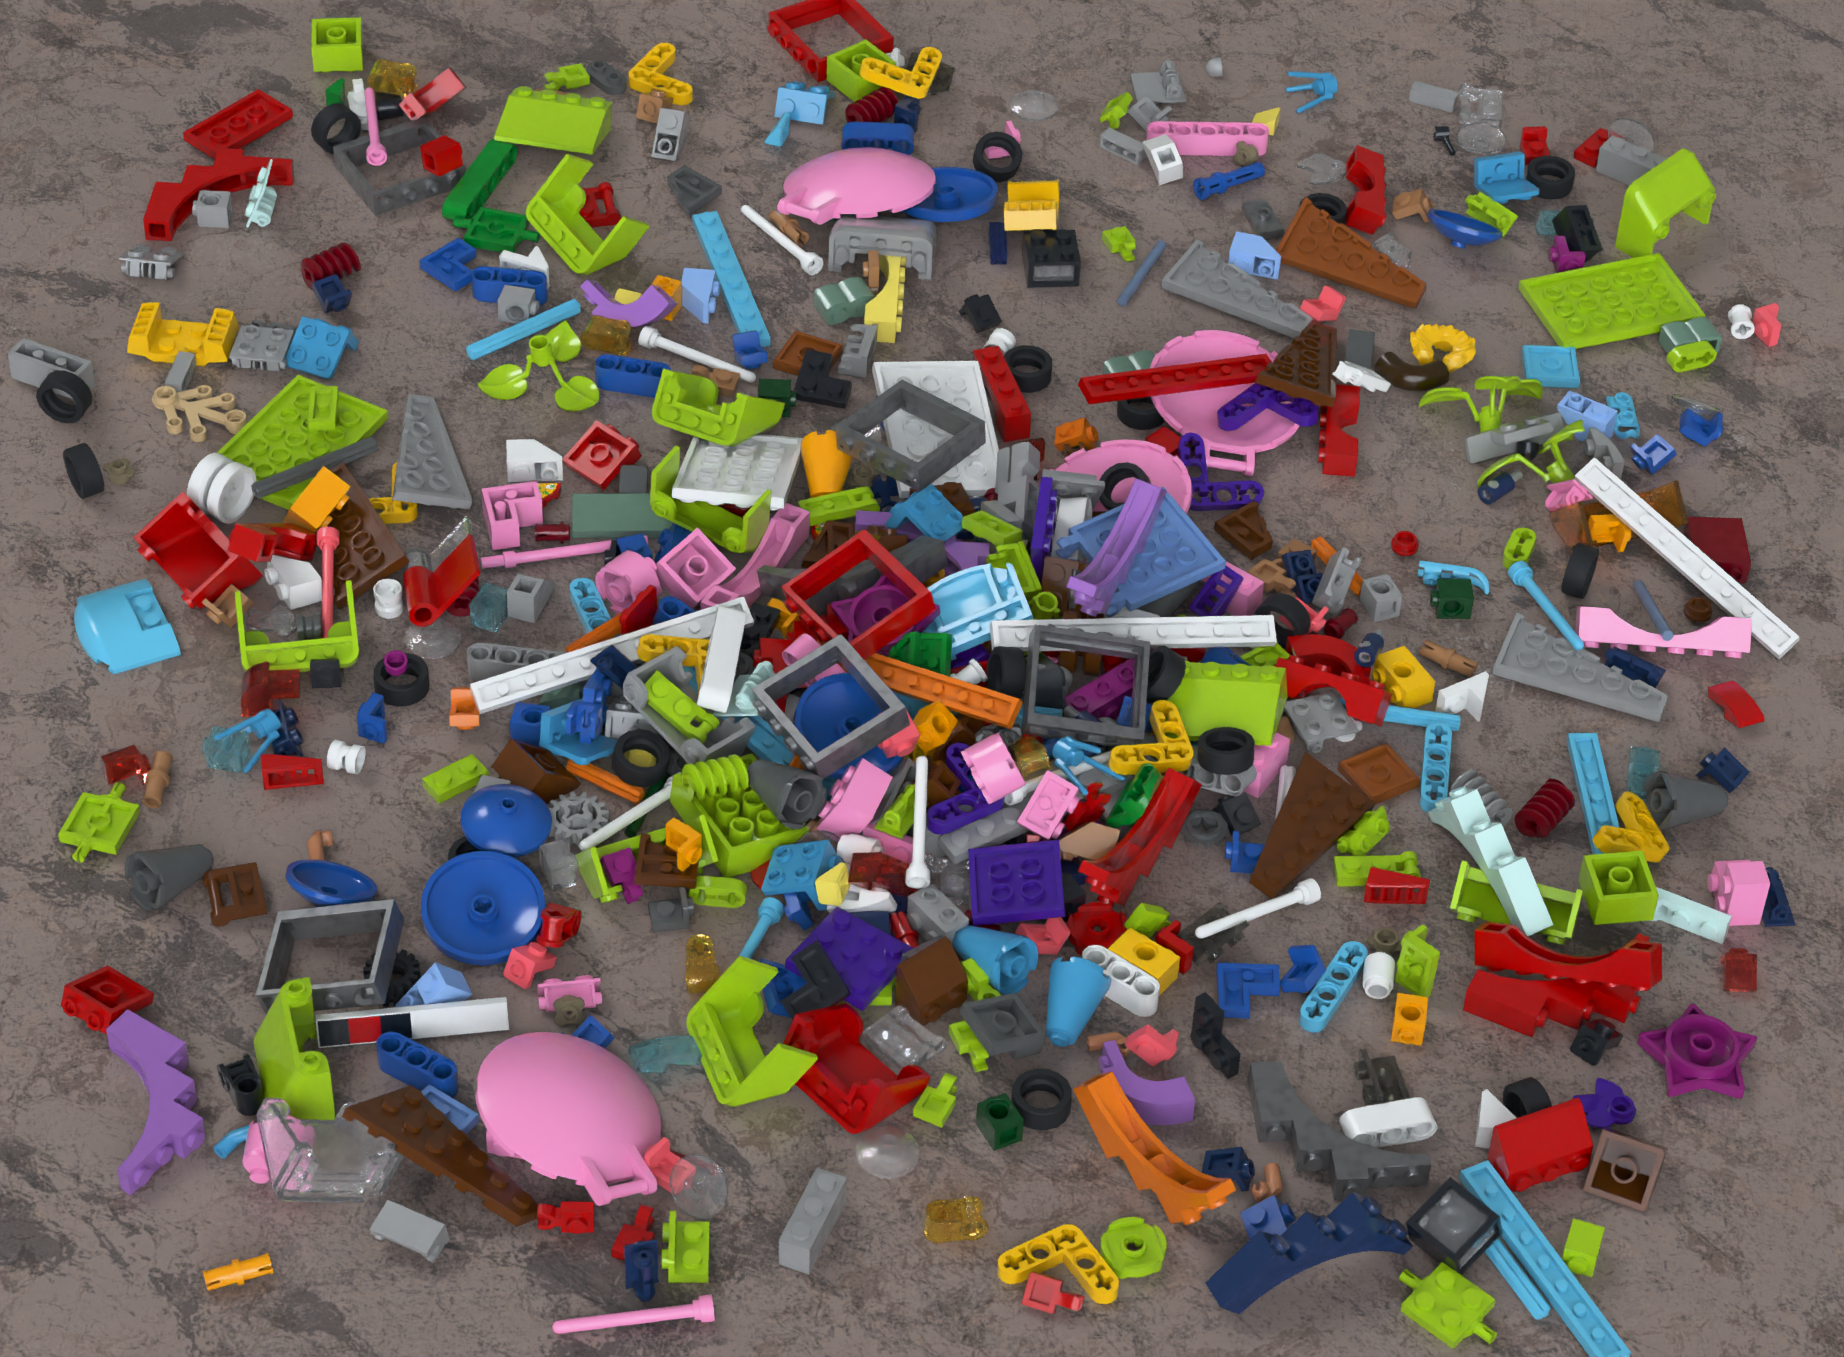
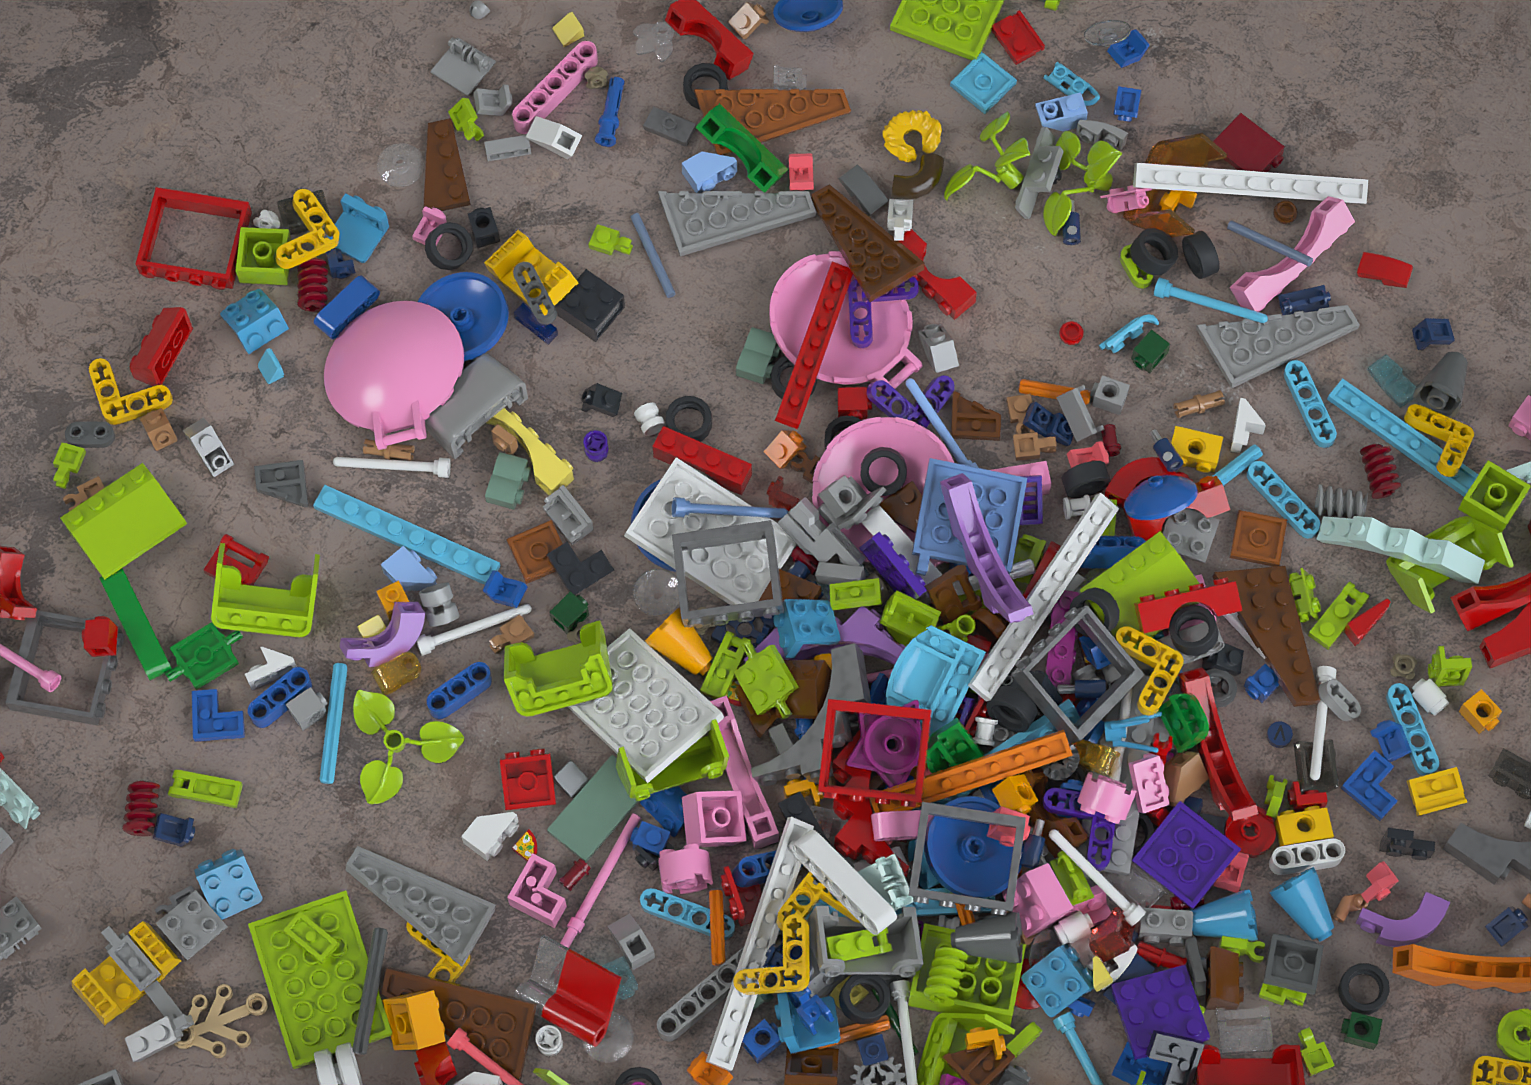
camera: 45 degrees left, 25 degrees up
(147, 380) = (157, 1036): none -> light grey hinge
(194, 324) = (130, 959): none -> light grey hinge
(387, 293) = (206, 788): none -> lime plate
(602, 791) = (872, 1050): none -> dark blue bracket
(603, 669) = (790, 966): none -> yellow beam
(689, 319) = (435, 596): none -> light grey wheel
(721, 65) = (161, 346): none -> red slope
(850, 520) = (766, 680): none -> lime plate
(901, 764) = (1033, 847): none -> dark blue piece
(936, 330) = (595, 440): none -> dark purple wheel
(937, 383) = (683, 507): none -> medium blue piece
(951, 110) = (360, 228): none -> dark azure bracket
(1011, 201) = (542, 298): none -> dark grey beam
(1039, 166) = (487, 235): none -> black brick
(1060, 127) = (444, 173): none -> reddish brown wing
(1066, 457) = (830, 497): none -> light grey brick
(1212, 894) = (1279, 734): none -> dark blue tile
(1214, 496) = (938, 424): none -> light blue piece
(1275, 742) = (1156, 613): none -> red arch
(1281, 469) = (938, 347): none -> light grey slope
(1294, 228) = (727, 131): none -> green arch
(1294, 910) = (1339, 700): none -> light grey beam
(1294, 1036) = (1436, 791): none -> yellow plate
(1322, 652) = (1160, 497): none -> blue dish
(1545, 731) = (1308, 404): none -> medium azure beam
(1553, 534) = (1163, 243): none -> black tyre
(1618, 362) = (1017, 37): none -> red plate

